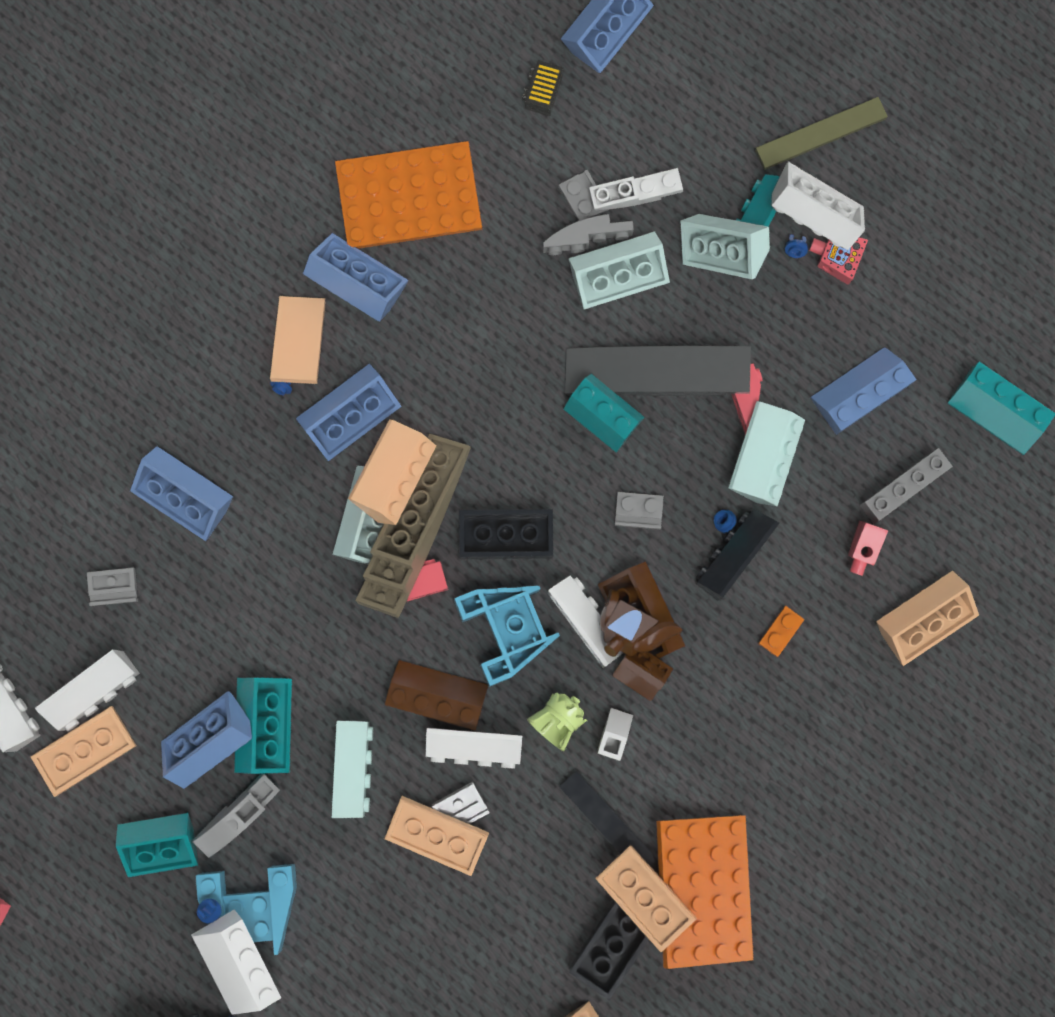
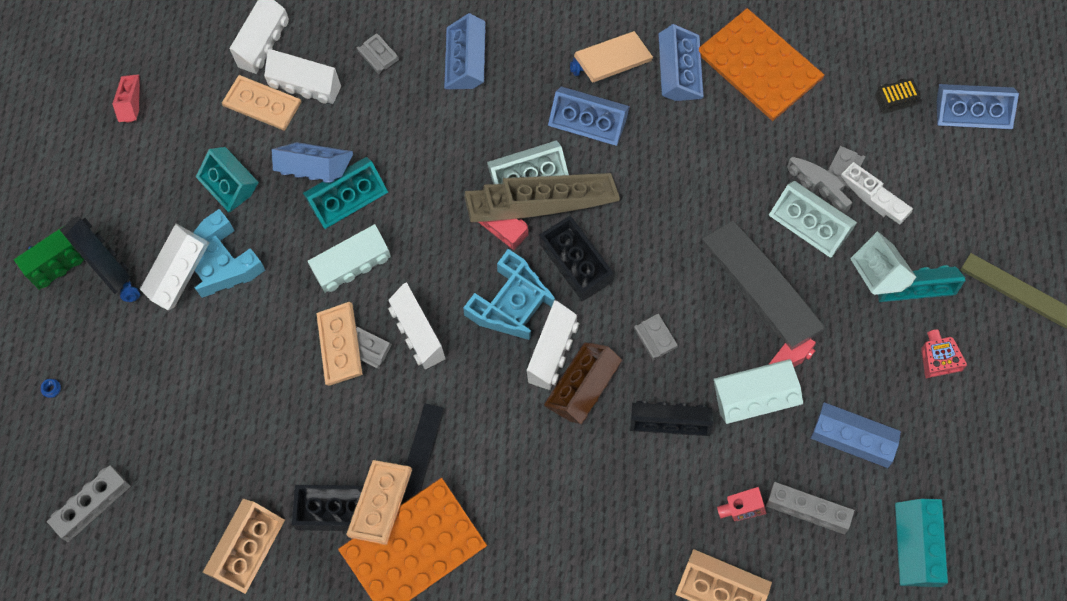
camera: 65 degrees right, 15 degrees down
(209, 911) = (199, 226): blue plate -> none
(236, 817) = (275, 211): light grey slope -> none
(392, 472) = (565, 158): light nougat slope -> none
(436, 695) = (436, 284): reddish brown slope -> none
(558, 719) = (471, 370): yellowish green hat -> none
(603, 412) = (706, 266): teal slope -> none
(615, 734) = (485, 416): white slope -> none
(631, 629) = (565, 373): reddish brown torso -> none
(643, 673) = (542, 404): reddish brown bracket -> none
(724, 520) = (690, 397): blue plate -> none
(781, 631) = (639, 488): orange plate -> none
(796, 248) = (922, 323): blue plate -> none
(818, 207) = (960, 308): white slope -> none

